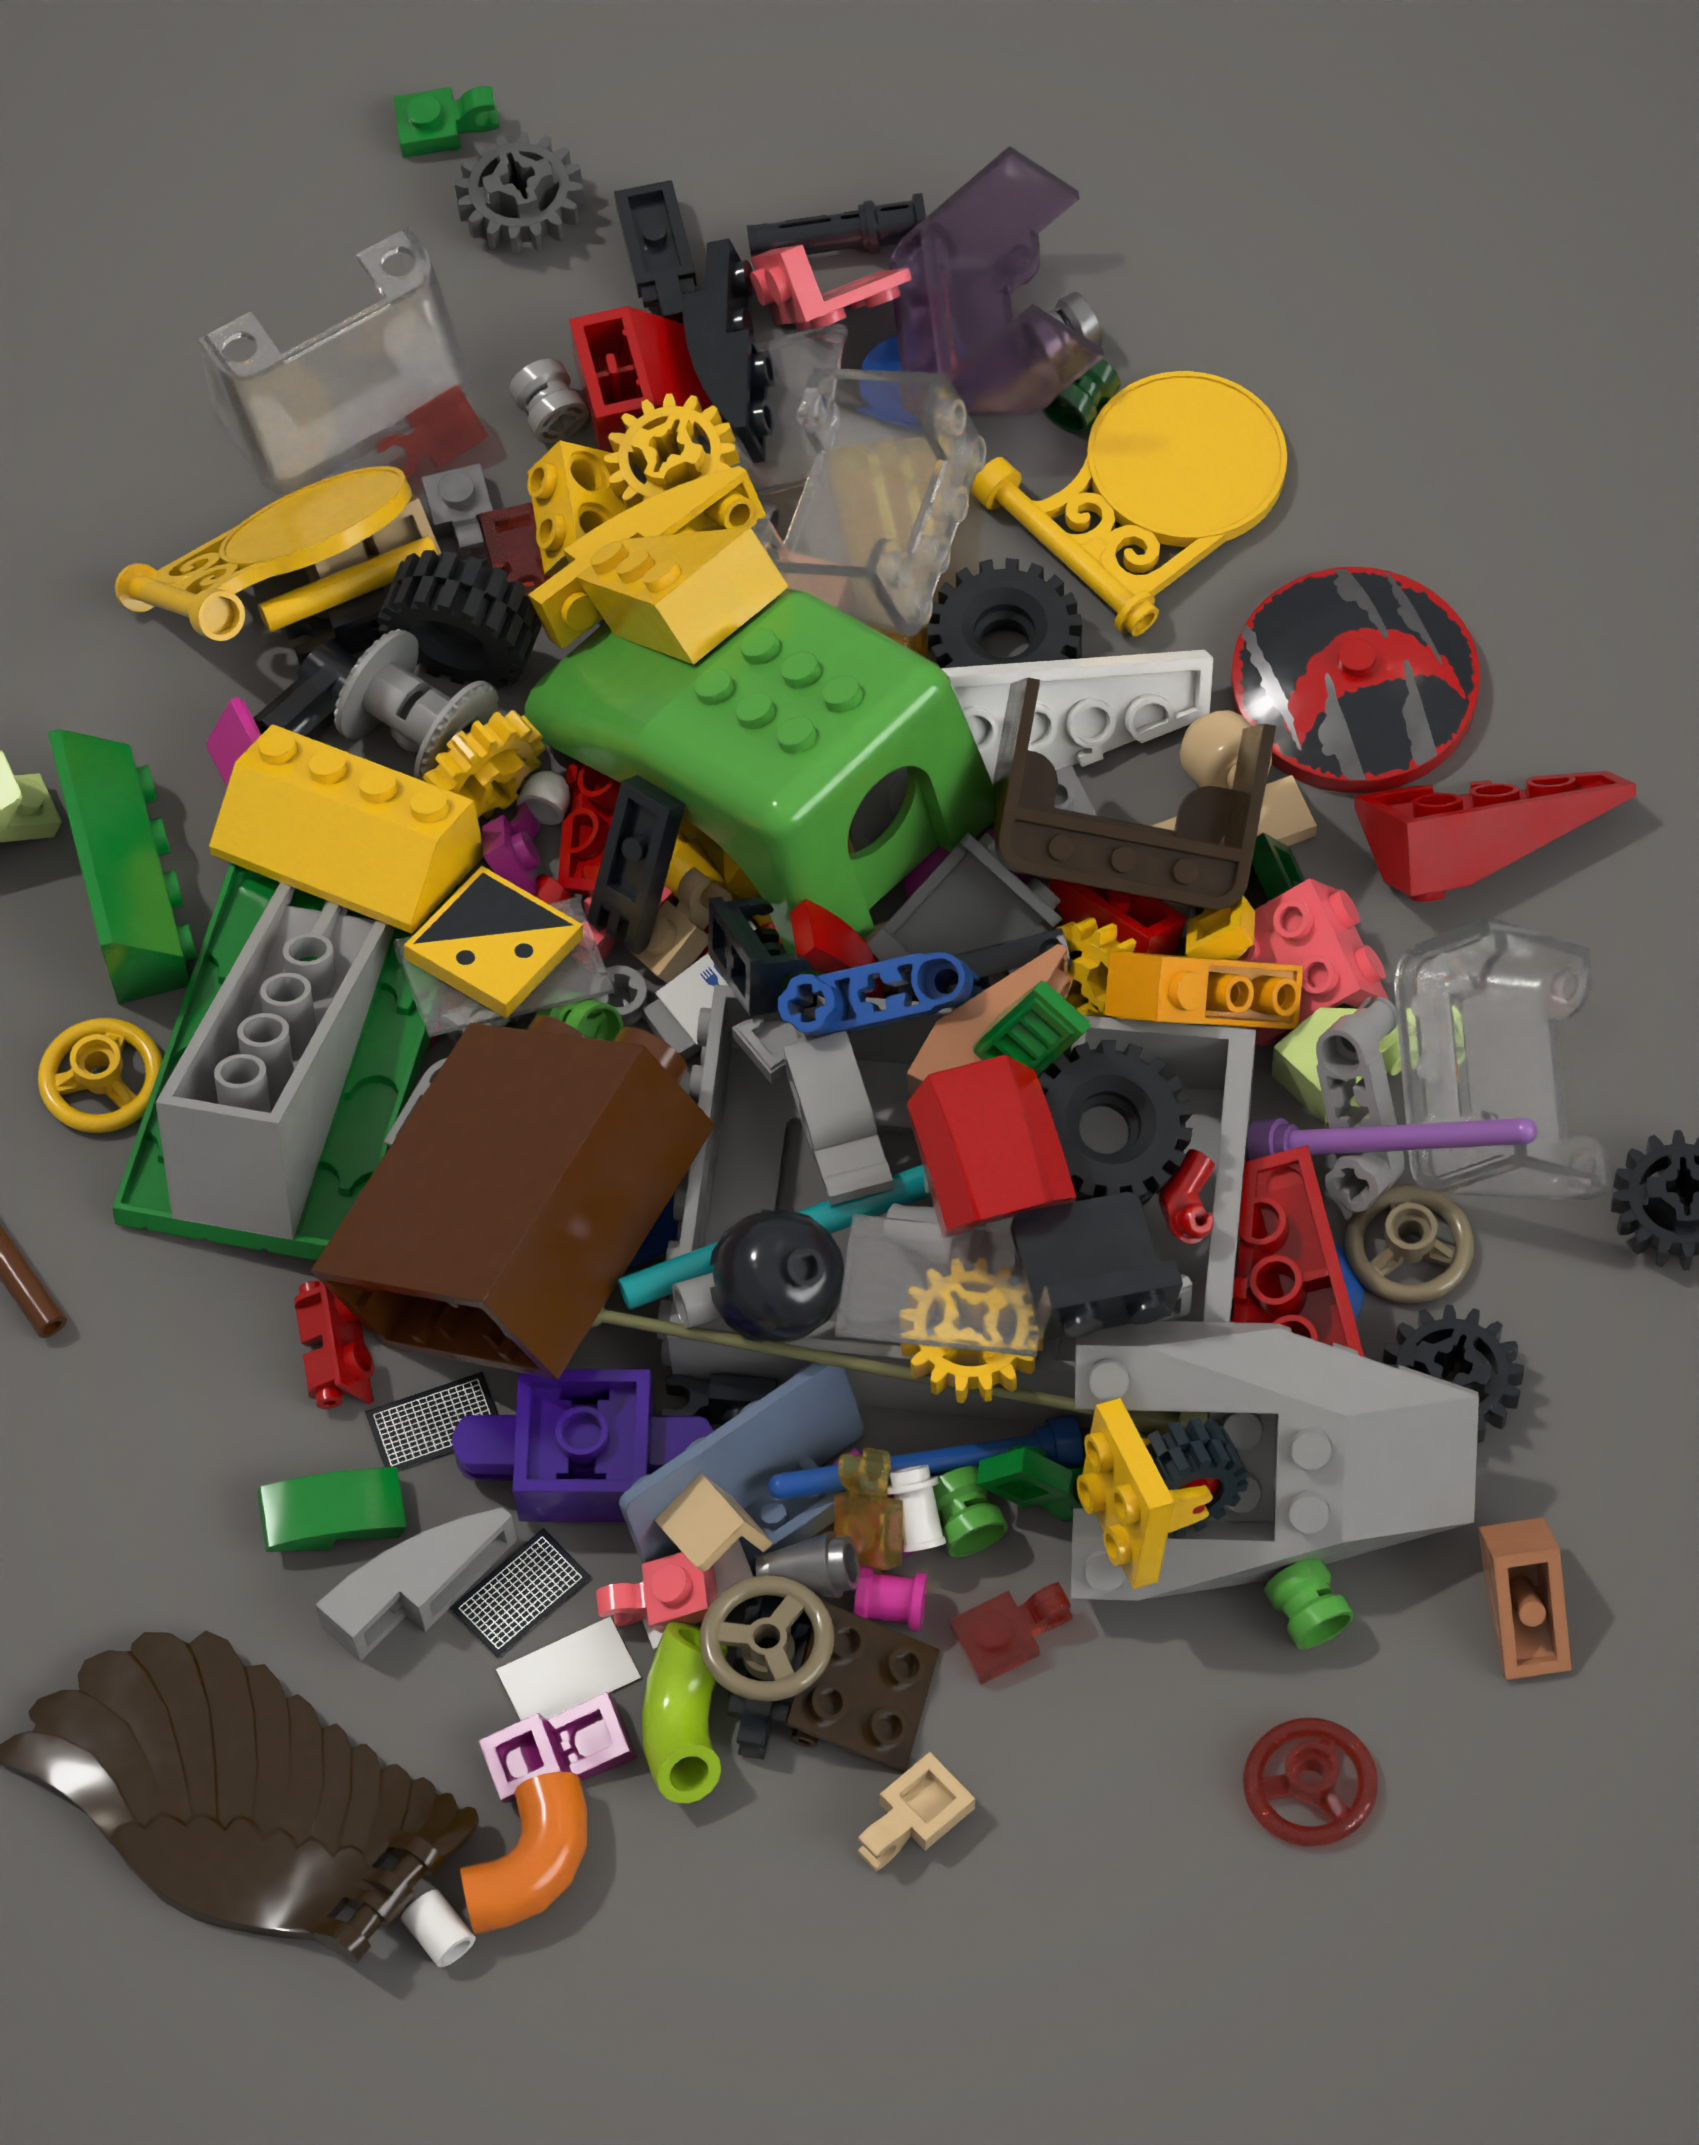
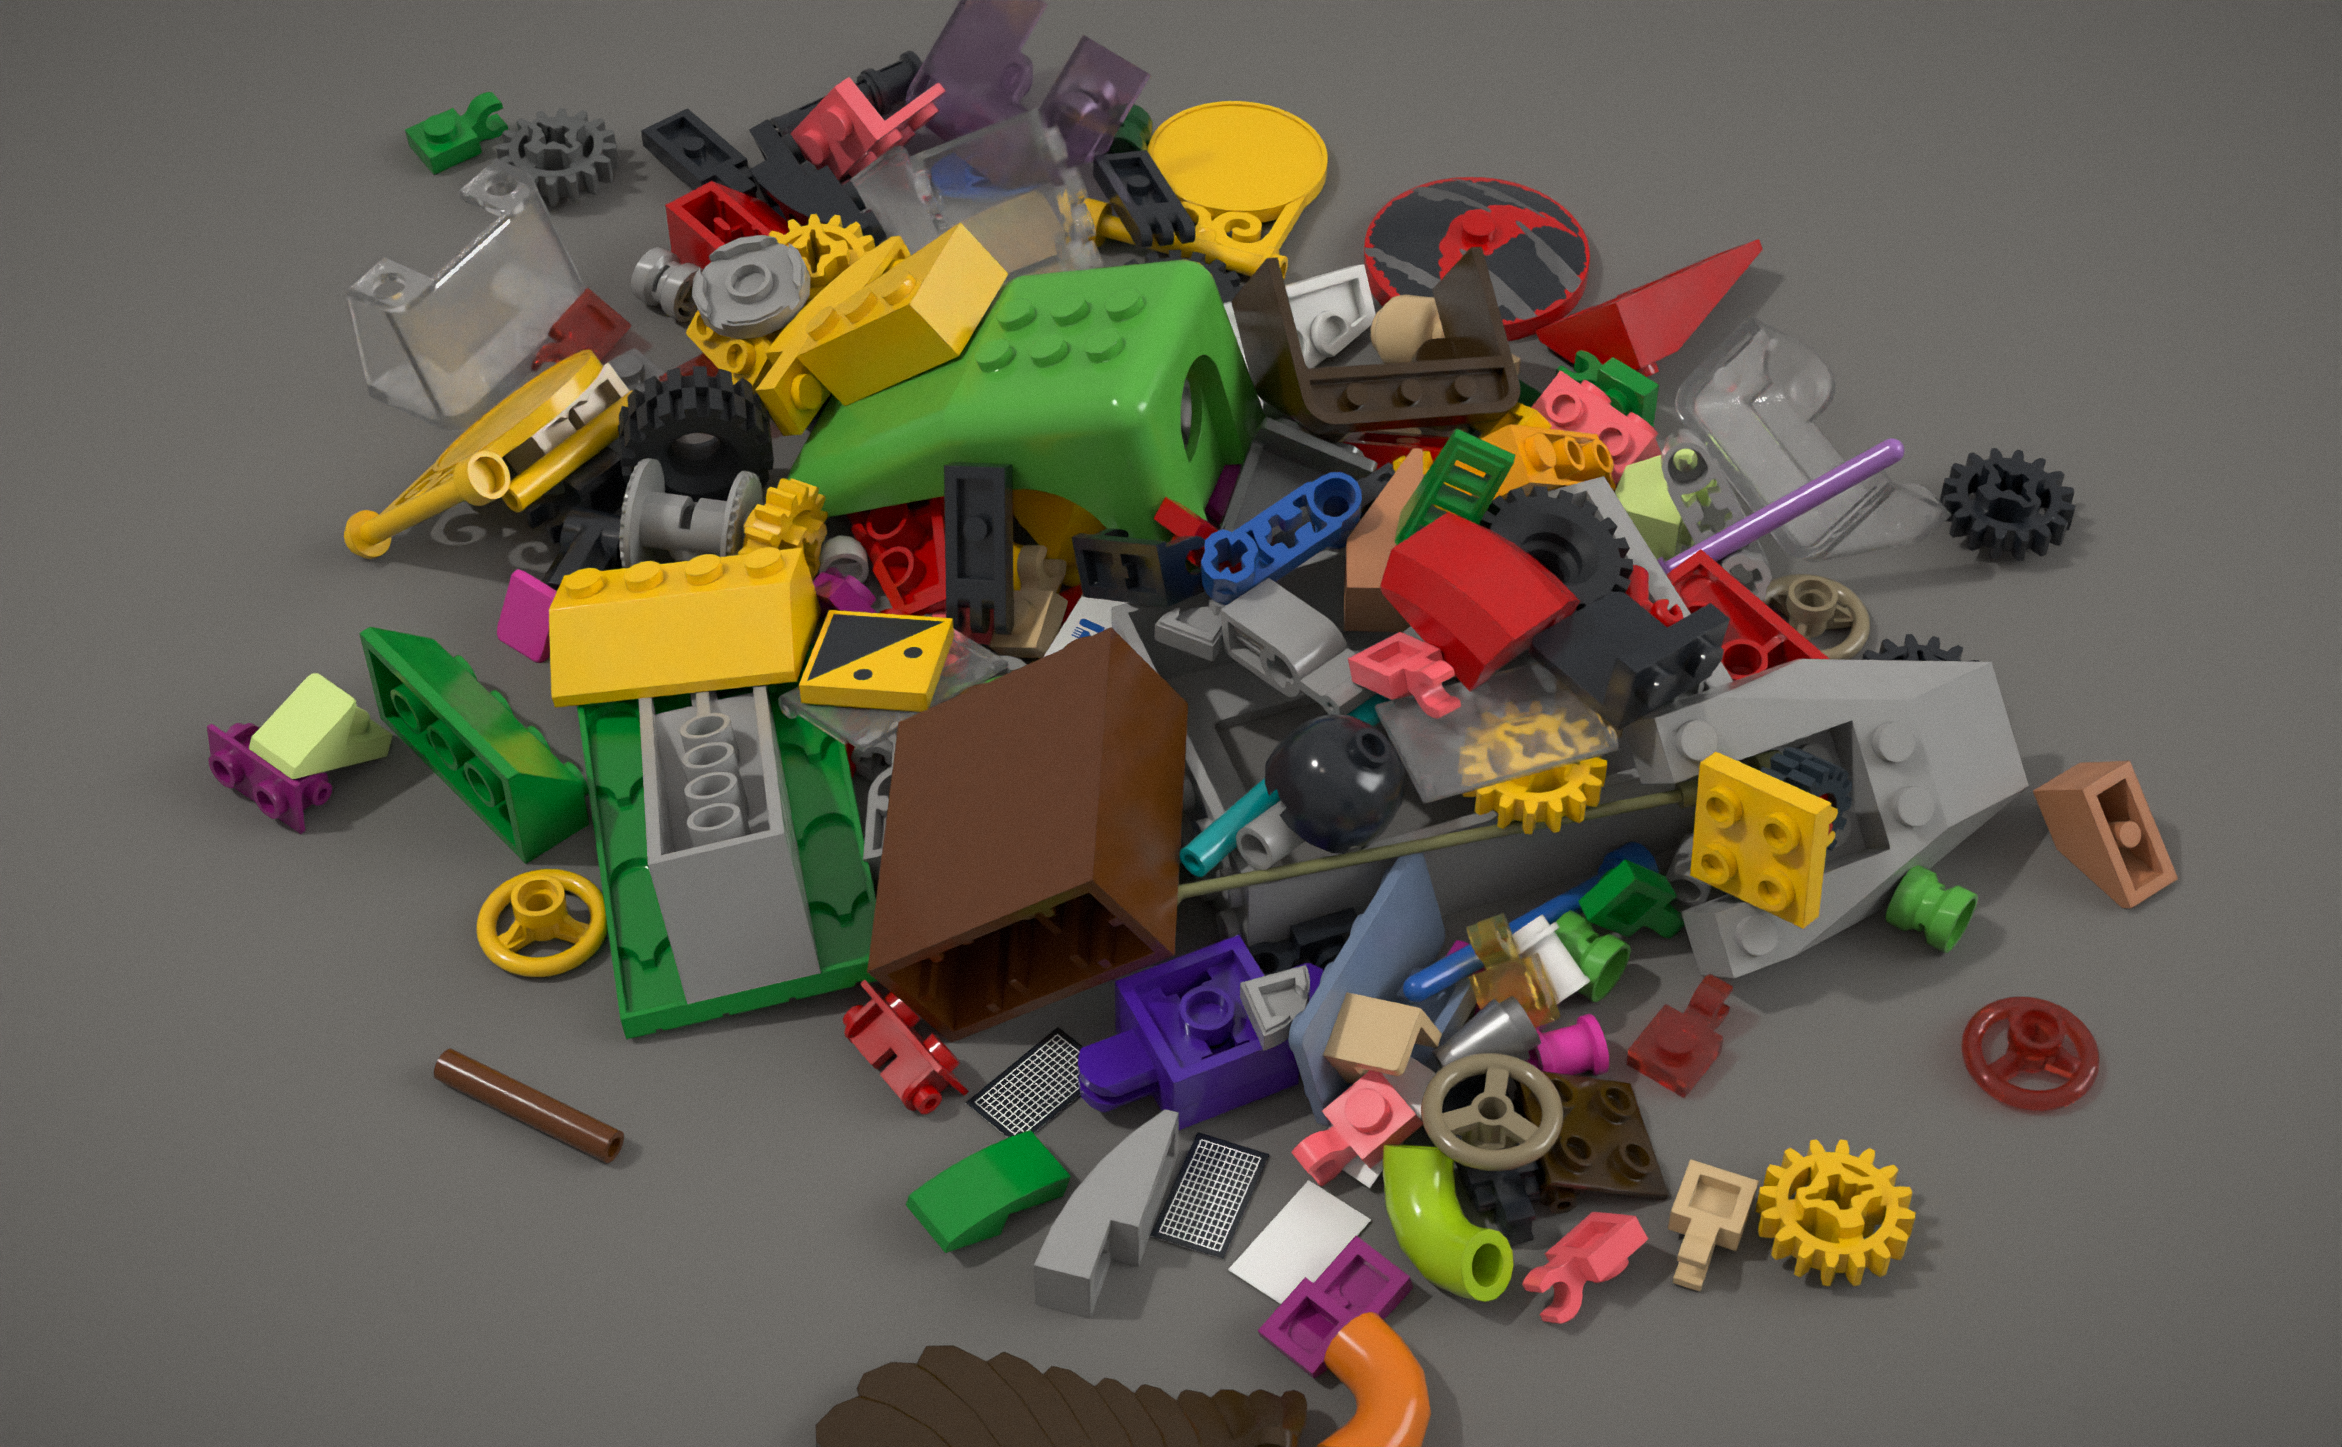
camera: 30 degrees left, 15 degrees down
(588, 466) = (751, 287): none -> light grey tile
(636, 1453) = (1275, 1002): none -> light grey tile
(789, 1798) = (1589, 1252): none -> coral plate
(893, 1188) = (1406, 668): none -> coral plate
(1044, 483) = (1143, 199): none -> black hinge
(1049, 1865) = (1835, 1212): none -> yellow gear
(1383, 913) = (1623, 385): none -> green plate

